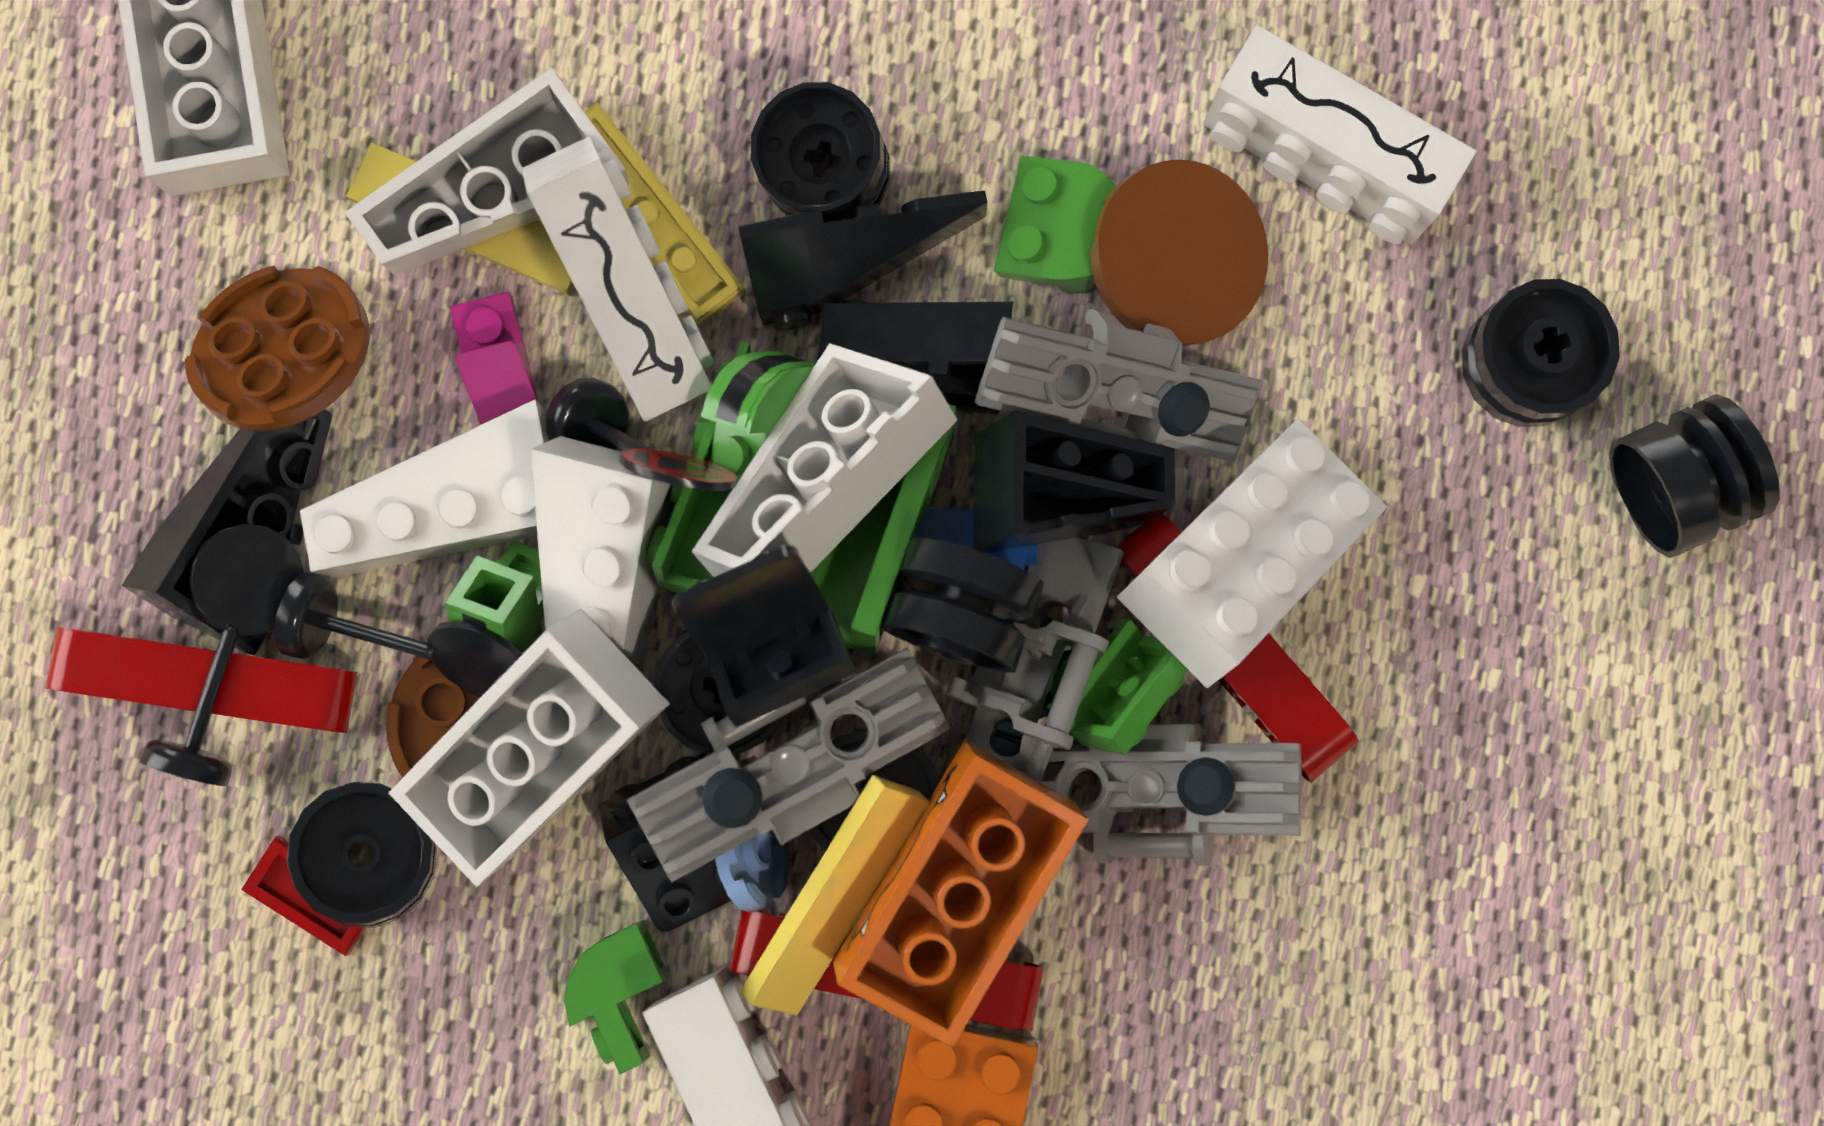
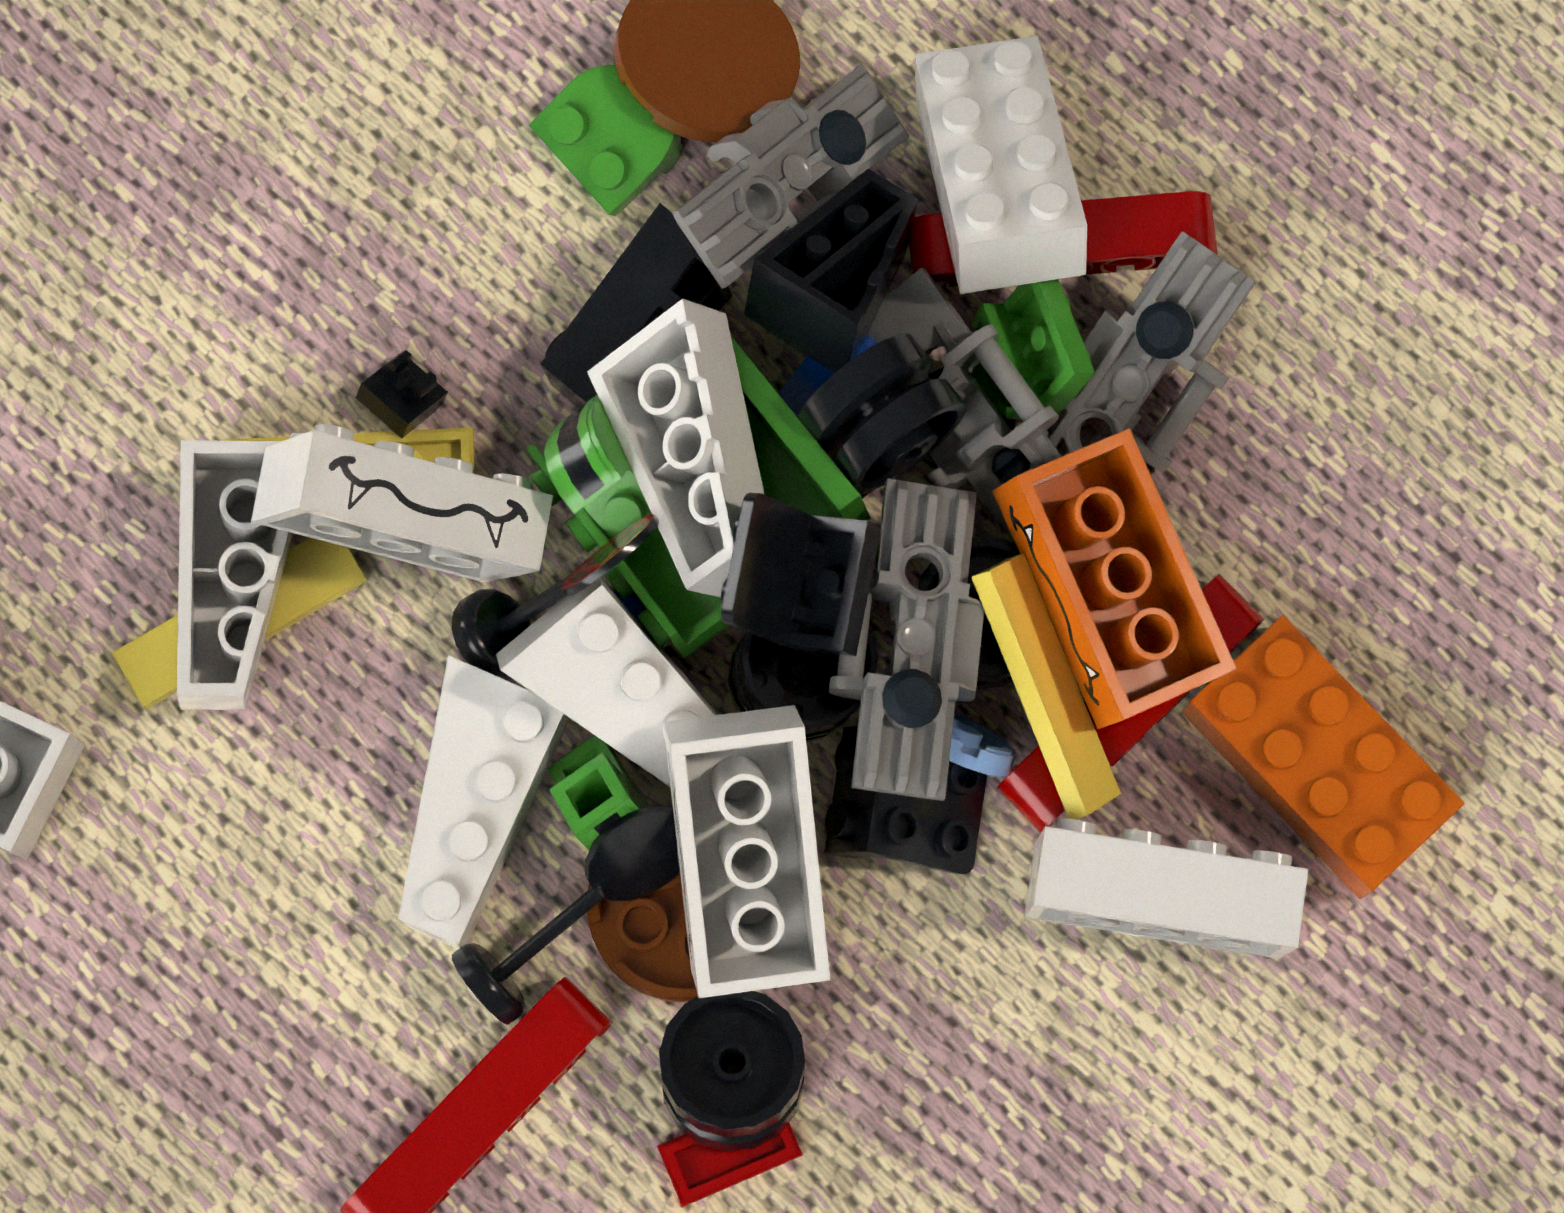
camera: 60 degrees left, 5 degrees down
(237, 588) = (431, 1017): black piece -> none
(248, 483) = (368, 1015): black wedge -> none
(278, 347) = (236, 849): dark orange tile -> none
(492, 355) = (377, 677): dark pink slope -> none
(603, 981) = (977, 942): bright green brick -> none
(724, 208) = (401, 394): none -> black tile
(802, 129) = (419, 245): black wheel -> none
(807, 262) = (497, 349): black wedge -> none

